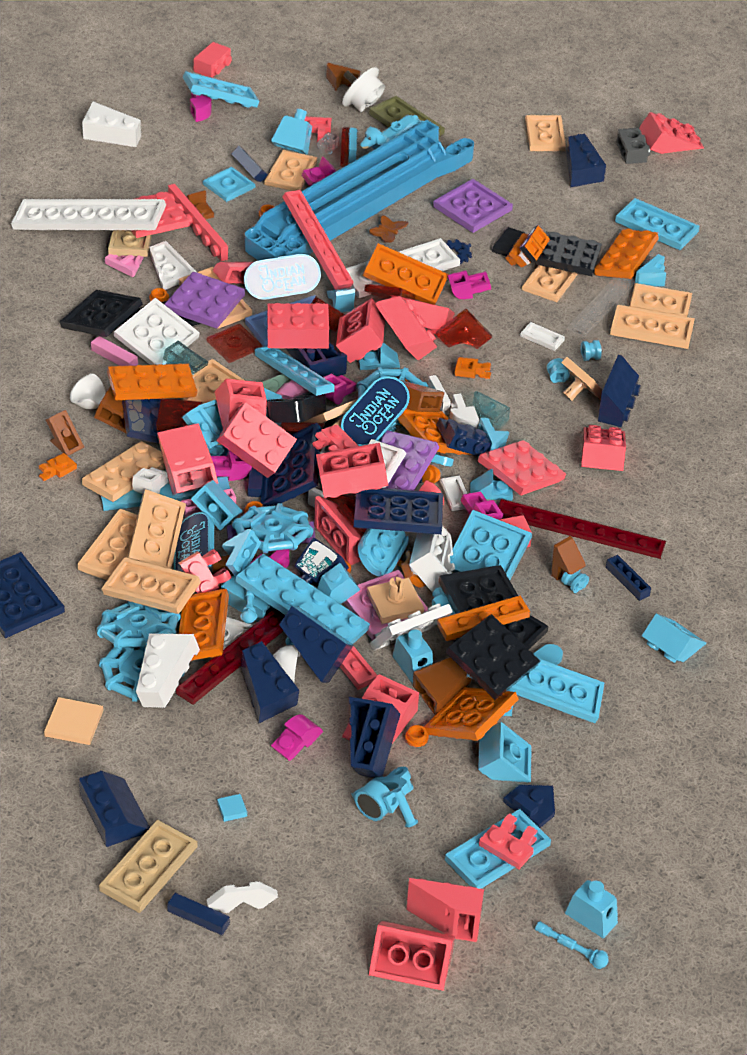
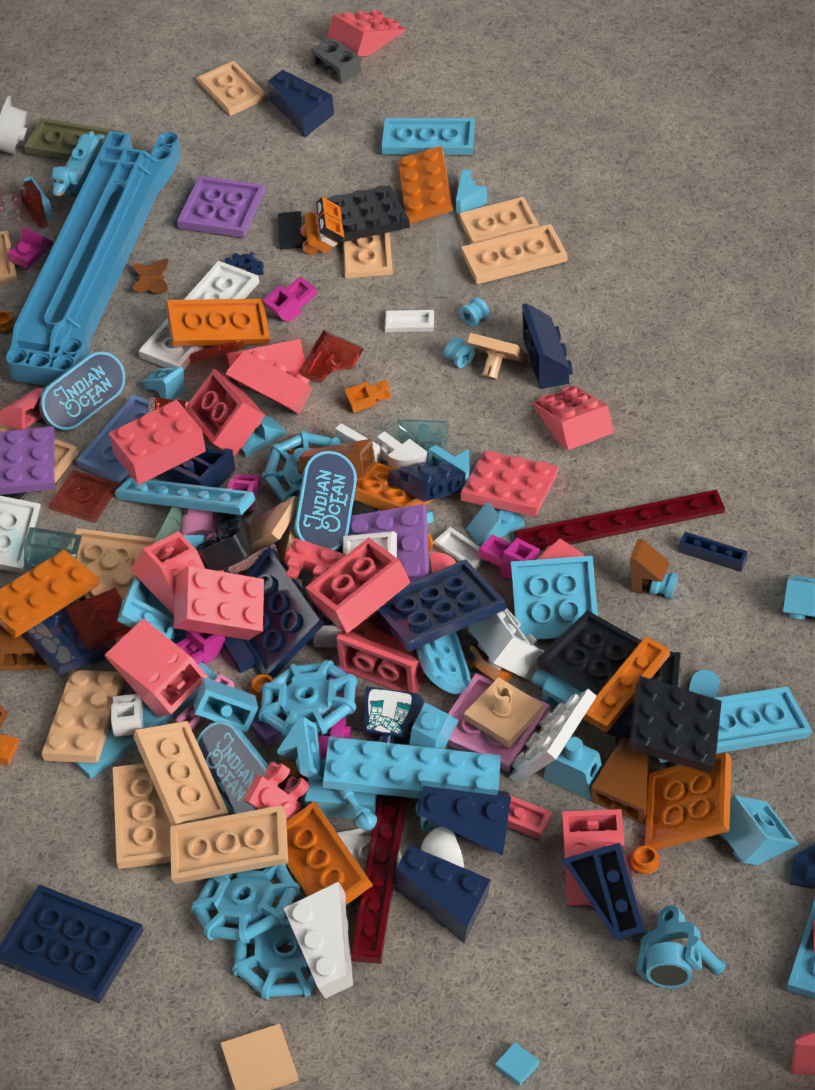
camera: 25 degrees left, 5 degrees up
(298, 733) = (522, 937): dark pink brick -> none
(318, 239) = (98, 328): coral plate -> none

